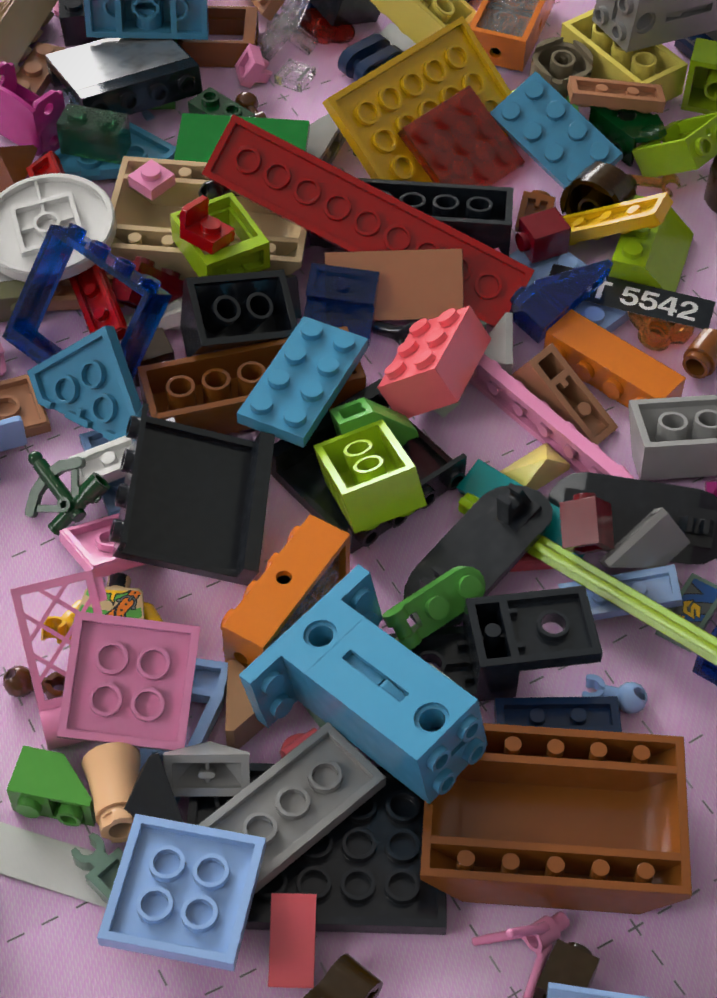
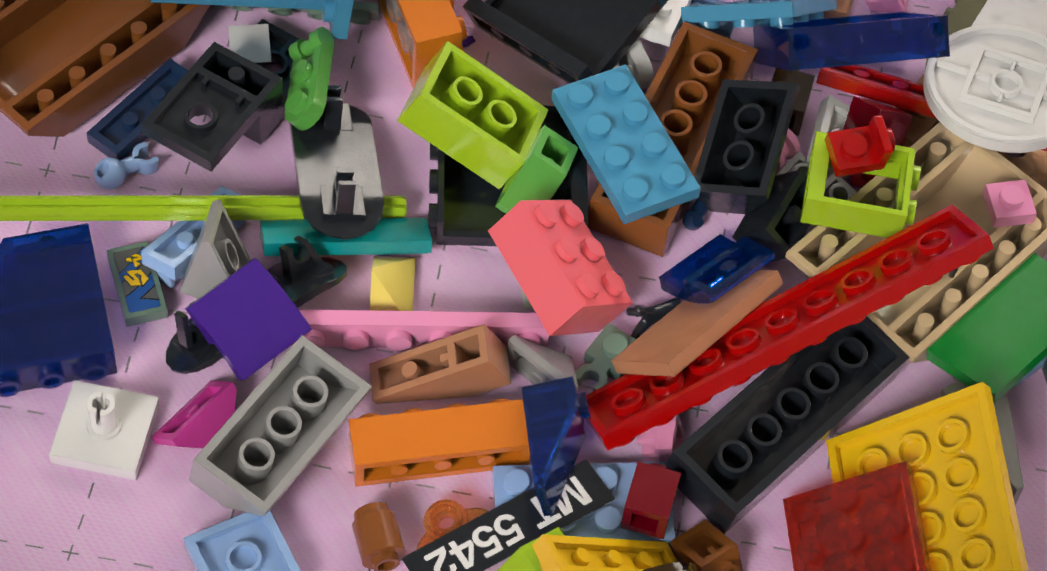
camera: 125 degrees right, 5 degrees up
(586, 524) = (264, 214): dark red brick -> none
(667, 485) = (248, 319): none -> dark purple slope

